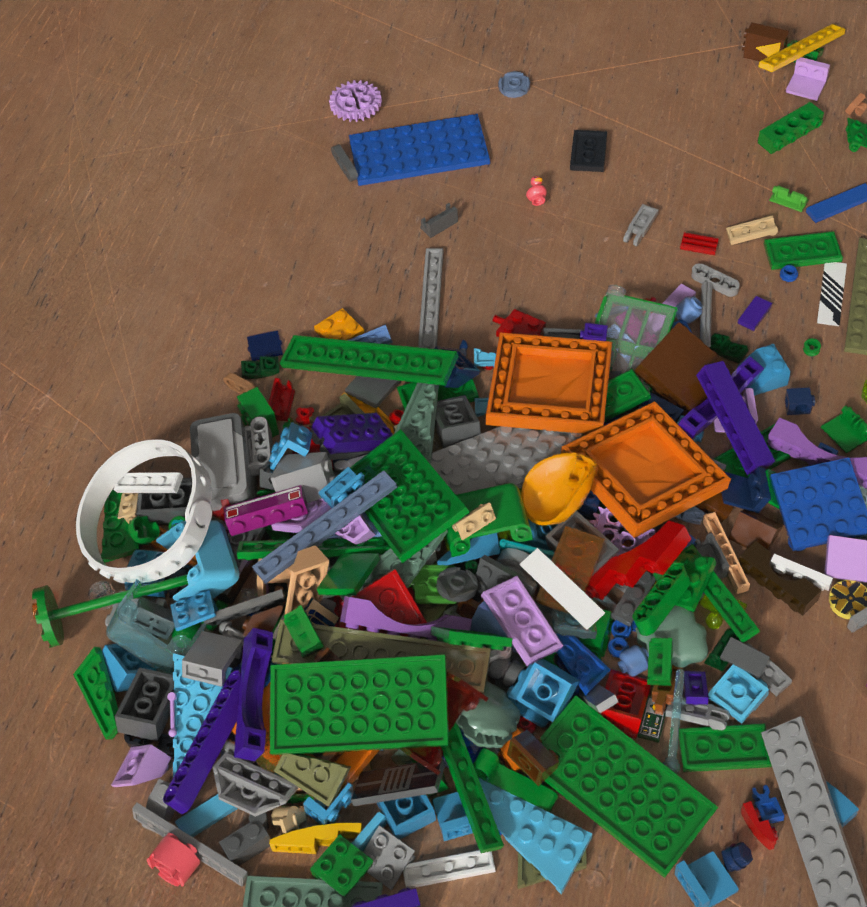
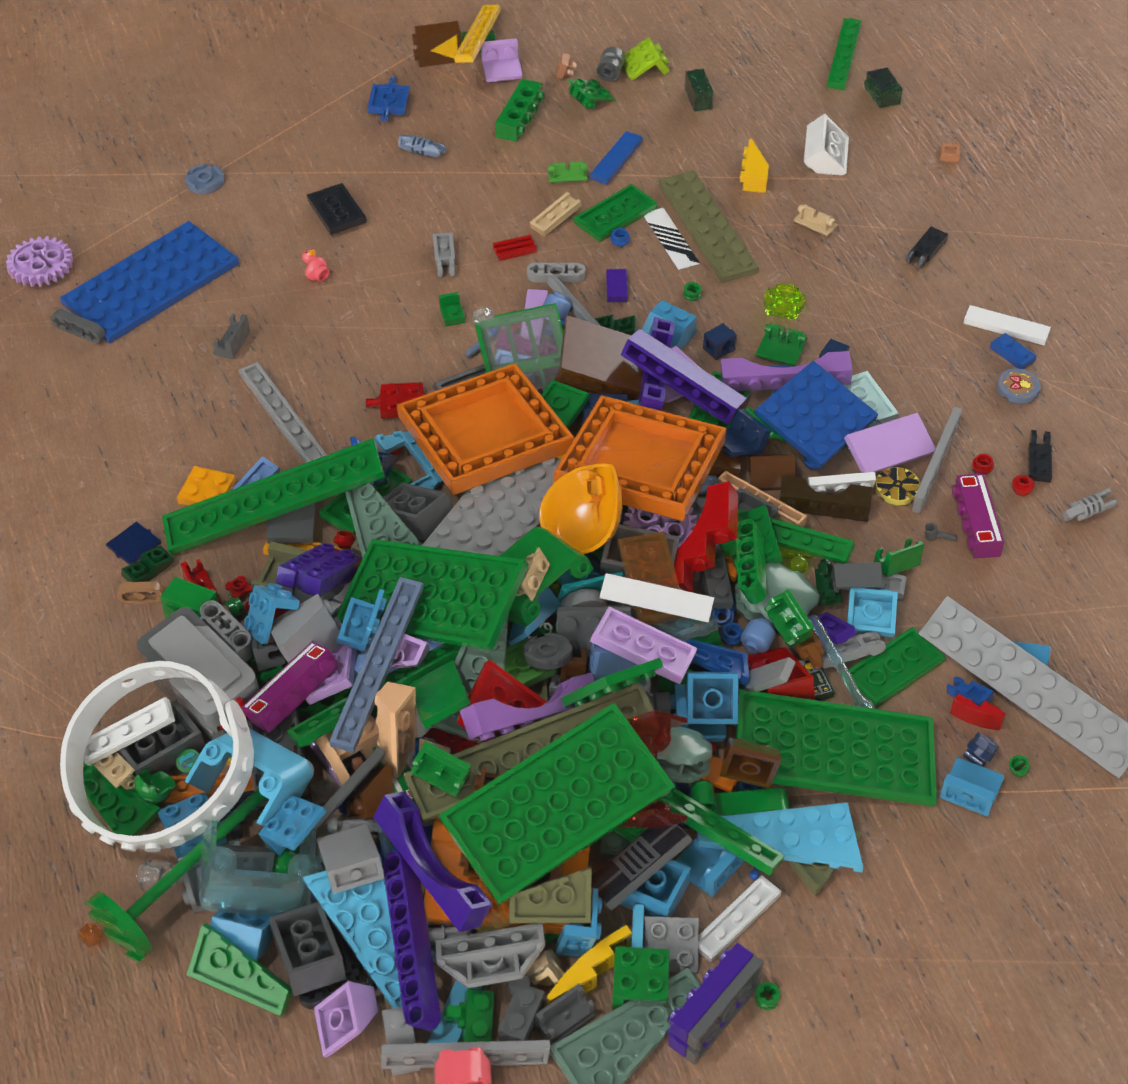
camera: 40 degrees left, 5 degrees down
(172, 697) = (334, 922): lavender hinge -> none
(217, 822) = (473, 1015): none -> green hinge
(276, 860) = (565, 1015): none -> dark grey hinge
(594, 332) = (490, 362): dark purple bracket -> none
(611, 272) = (451, 309): none -> green bracket
(691, 126) = (421, 145): none -> sand blue hinge
(696, 75) = (388, 99): none -> blue plate
(757, 885) = (1017, 763): none -> green hinge
(796, 663) = (901, 559): none -> green hinge
(849, 657) = (931, 533): none -> dark grey hand

